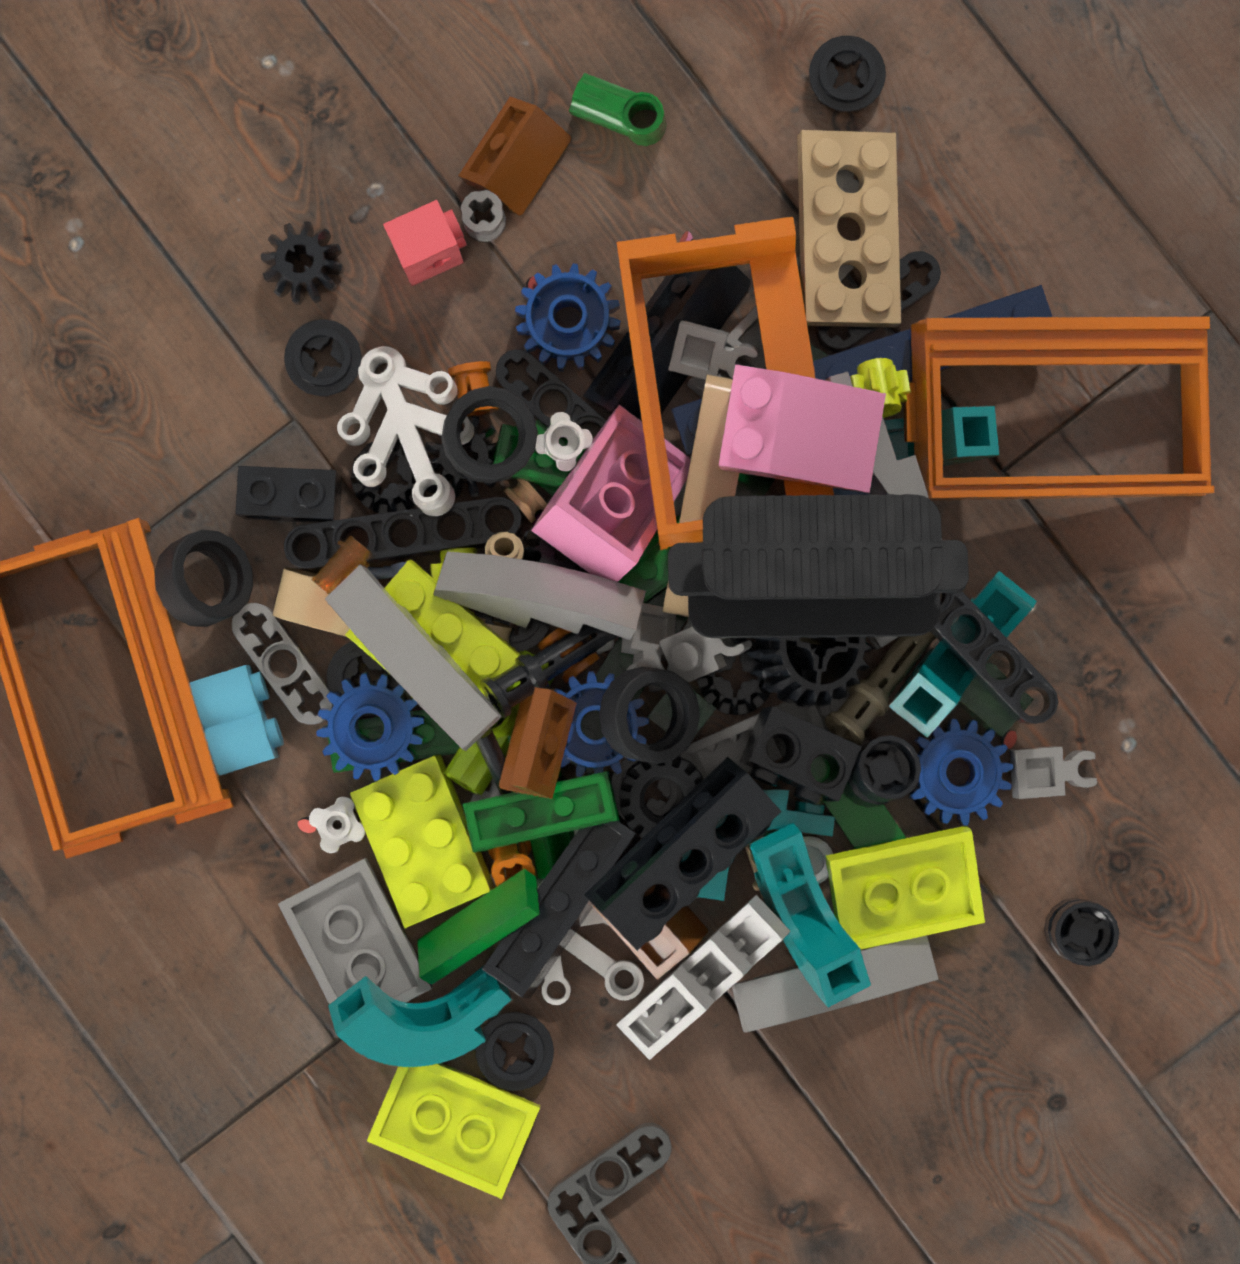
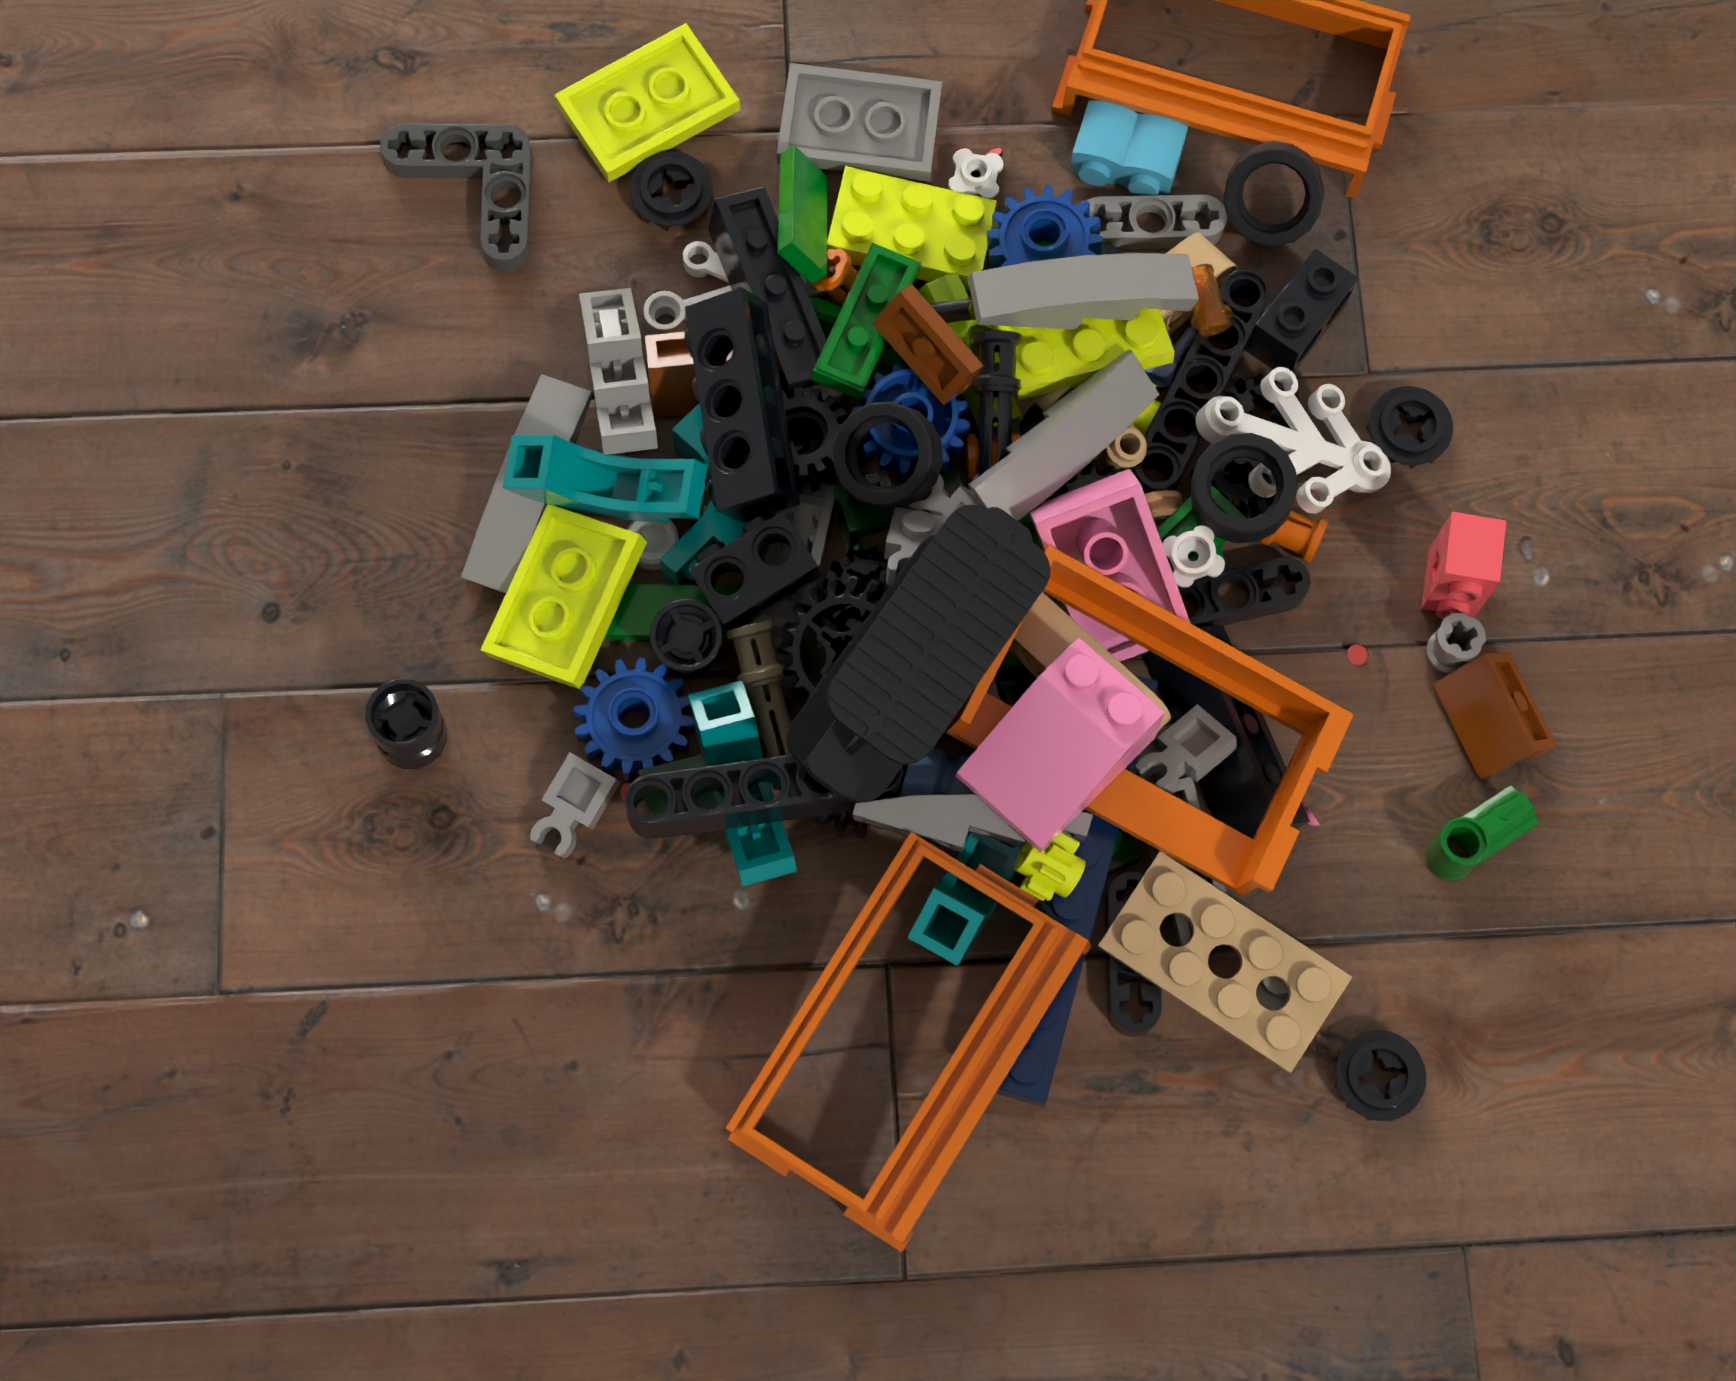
camera: 115 degrees right, 15 degrees down
(289, 249) = (1520, 480): black gear -> none
(417, 1032) = (753, 106): teal arch -> none
(562, 291) = (1321, 631): blue gear -> none

